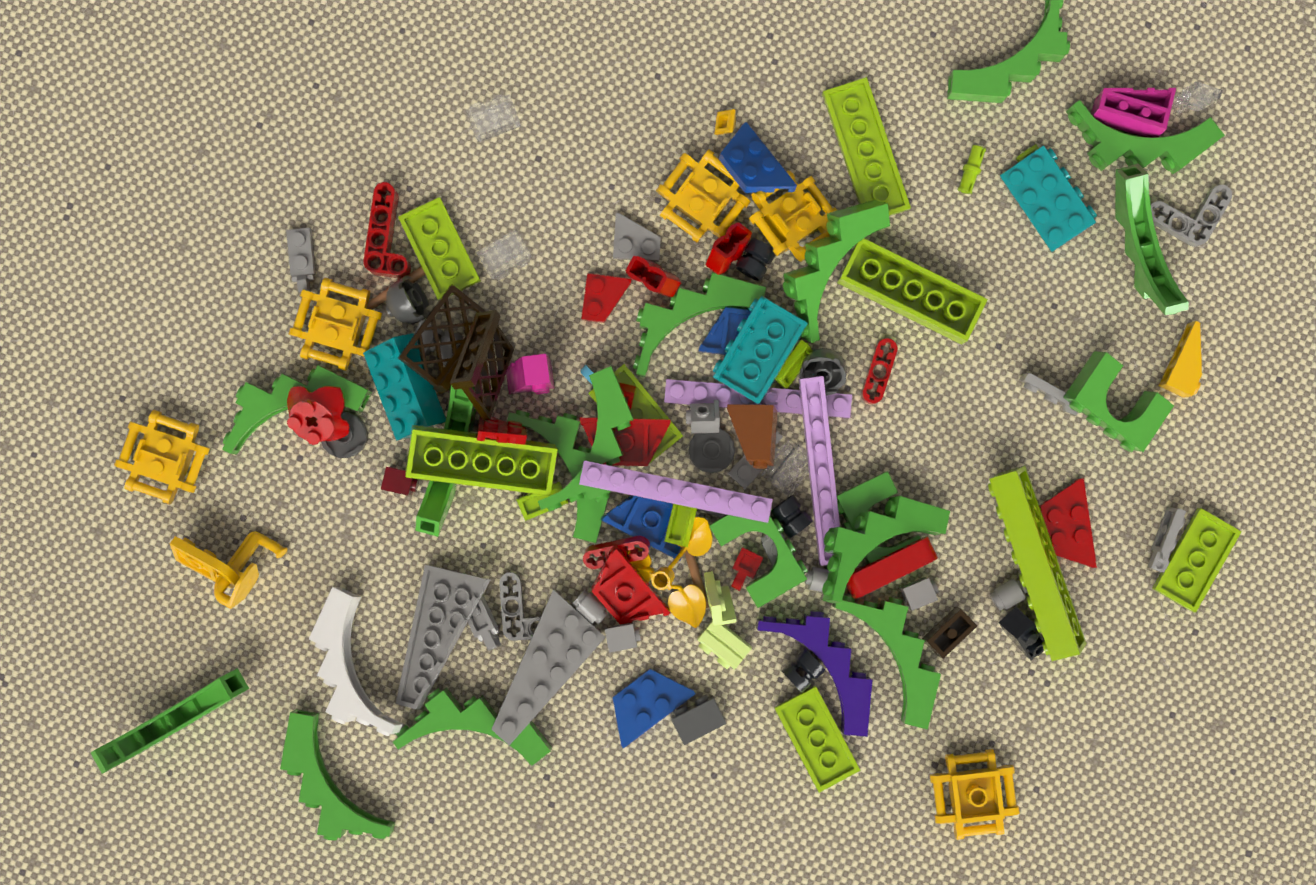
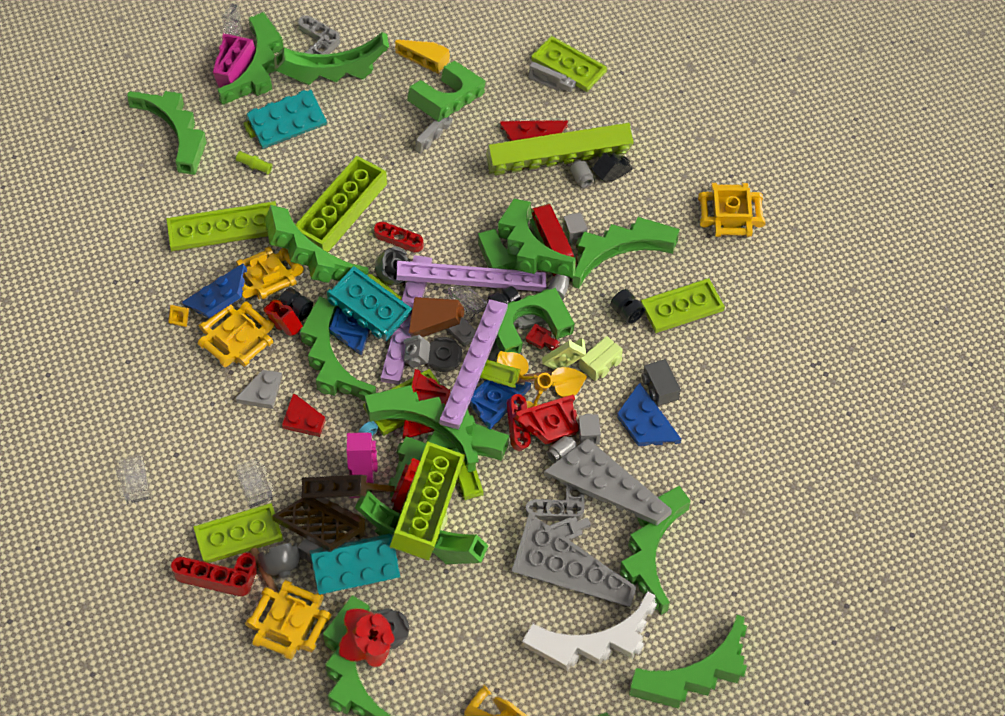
camera: 80 degrees left, 30 degrees down
(301, 257) = (222, 648): light grey hinge -> none
(397, 482) = (436, 583): dark red brick -> none
(653, 276) = (291, 376): red brick -> none
(853, 689) = (644, 278): dark purple arch -> none
(949, 632) = (606, 208): dark brown brick -> none

